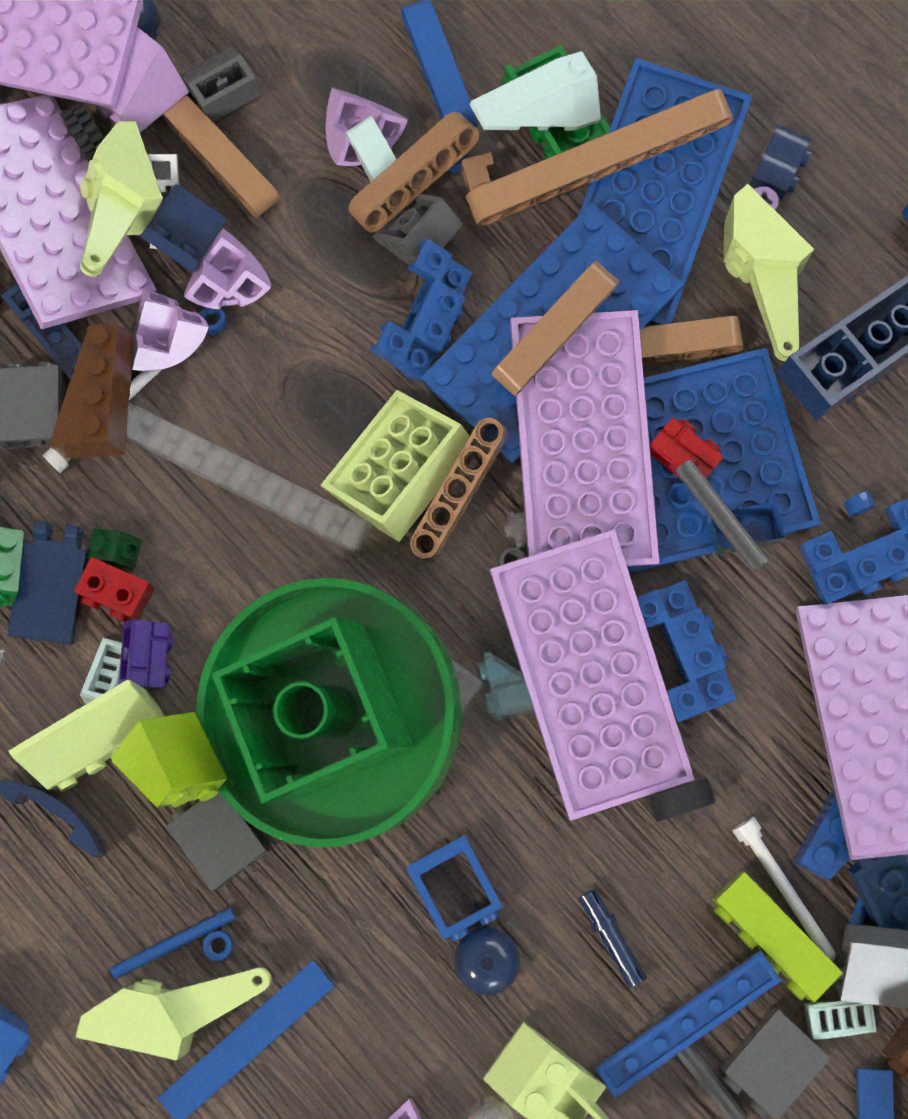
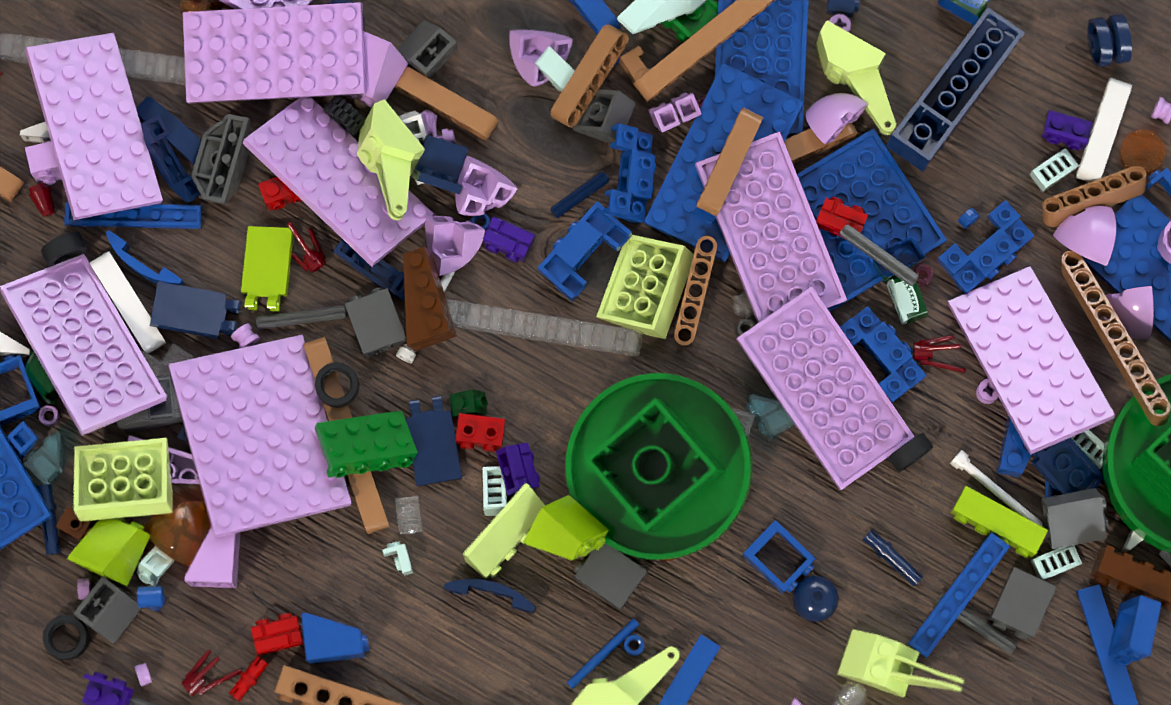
camera: 25 degrees left, 0 degrees up
(190, 174) = (429, 120): none -> lavender piece
(239, 351) = (508, 240): none -> dark purple brick
(326, 385) = (578, 246): none -> blue bracket
(352, 321) = (579, 194): none -> dark blue axle
(522, 245) = (679, 109): none -> lavender legs
(717, 311) = (832, 113): none -> lavender brick
(741, 589) = (907, 301): none -> light aqua piece
(745, 661) = (924, 350): none -> dark red plant
(783, 557) = (929, 271): none -> clear pink axle
(809, 747) = (985, 394): none -> lavender wheel

